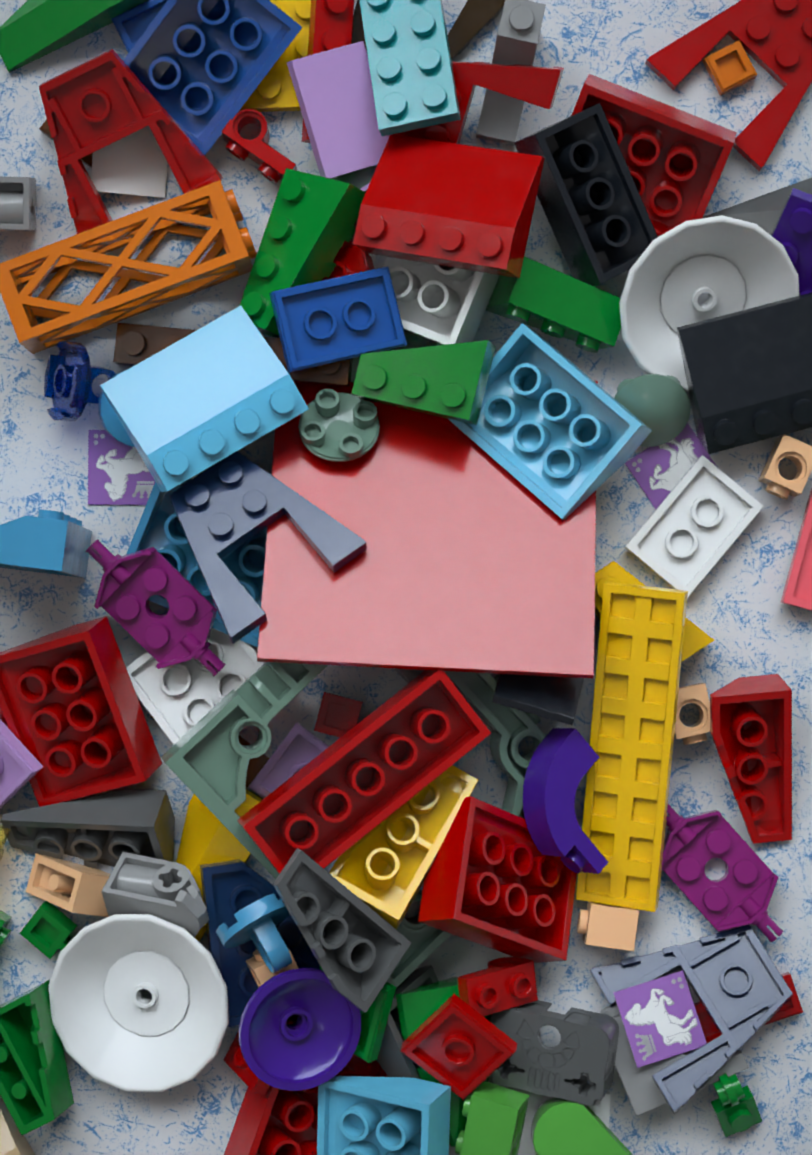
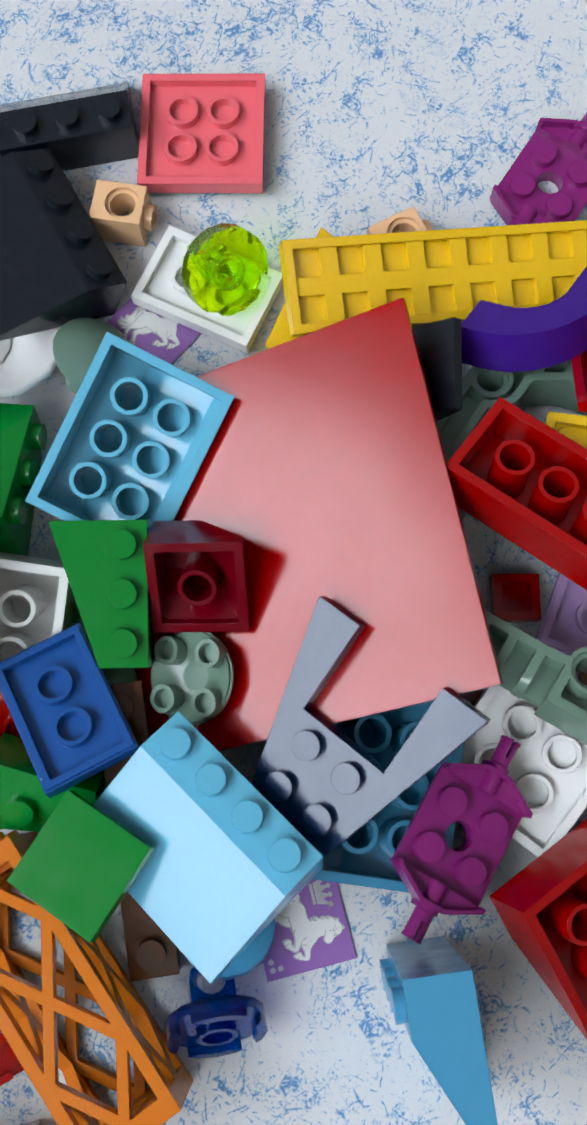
camera: 100 degrees left, 10 degrees down
(211, 308) = (81, 865): none -> green tile
(415, 449) = (196, 578): none -> dark red slope
(691, 541) = (224, 269): none -> clear neon green tile
(755, 747) = (417, 166): red wedge -> none

